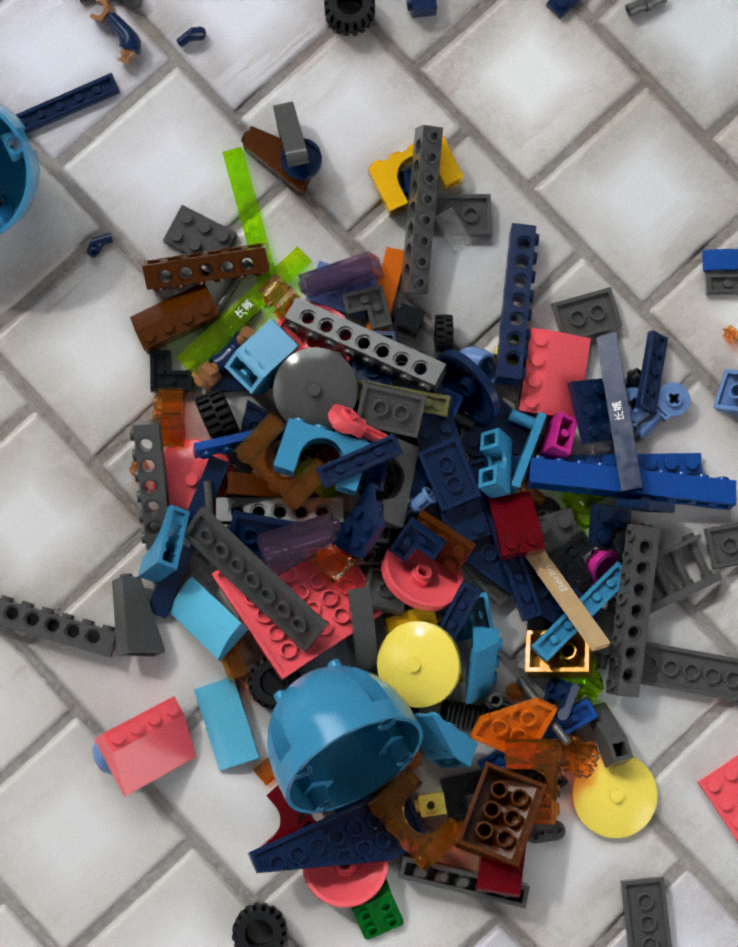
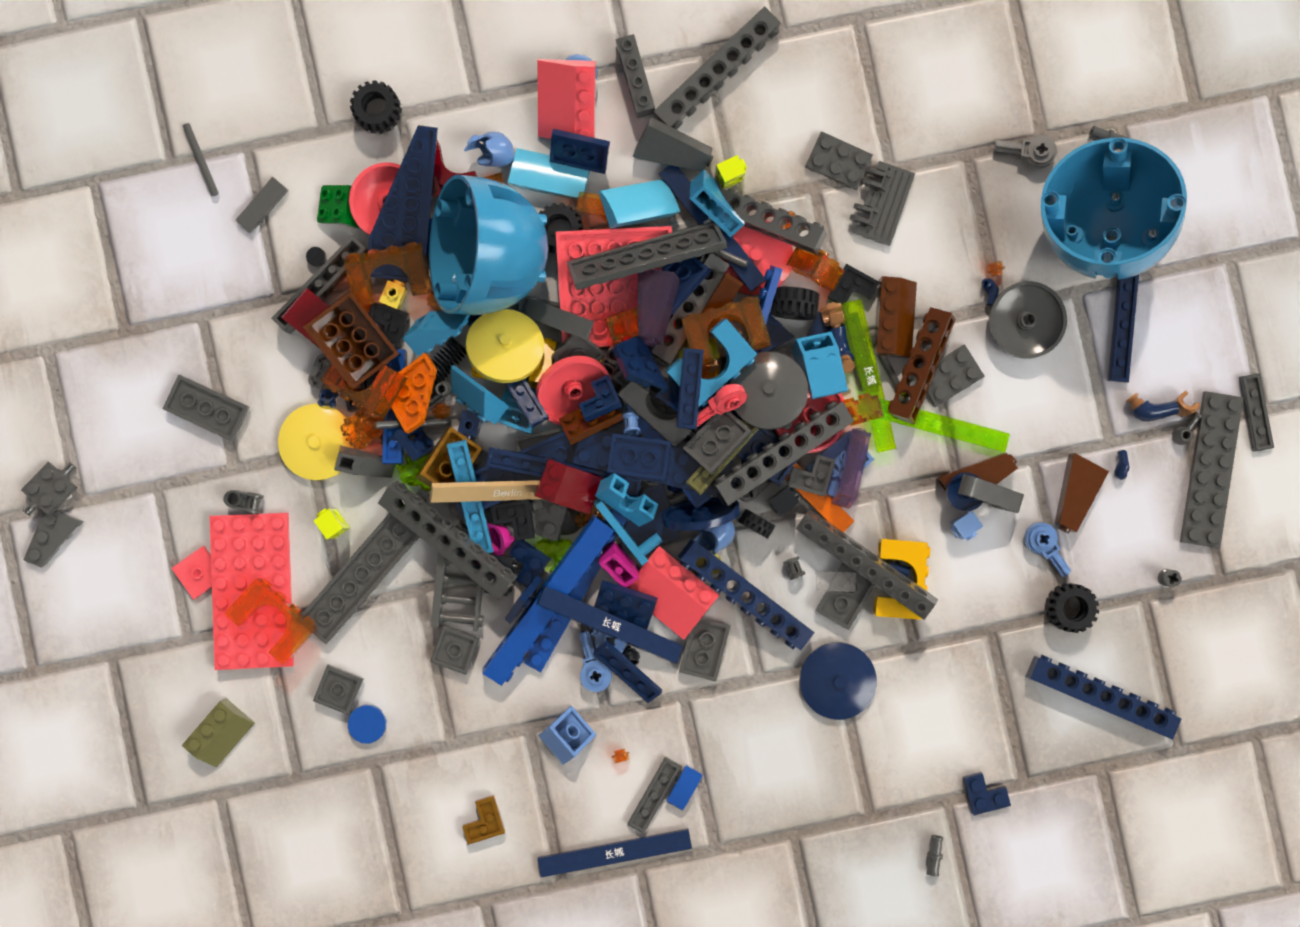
camera: 120 degrees right, 5 degrees up
(55, 455) = (838, 160): none -> dark grey plate
(71, 388) = (885, 203): none -> dark grey hinge
(74, 252) = (995, 268): none -> clear orange plate
(84, 695) = (635, 76): none -> dark grey brick
(107, 194) = (1027, 319): none -> dark grey dish
(126, 548) = (730, 172): none -> neon yellow brick
(189, 705) = (579, 151): none -> dark blue plate
(232, 789) = (496, 149): none -> medium blue helmet
(240, 60) = (1078, 491): none -> reddish brown slope
(307, 61) = (1048, 547): none -> medium blue piece
(332, 143) = (966, 526): none -> light blue brick
(438, 903) = (316, 256): none -> black tile
(463, 276) = (794, 568): none -> dark grey bush
(512, 656) = (469, 424): none -> dark blue brick
(542, 178) = (838, 680): none -> dark blue dish
(573, 811) = (324, 393): none -> dark blue plate
(683, 731) = (331, 523): none -> neon yellow brick
(711, 829) = (246, 502): none -> dark grey piece

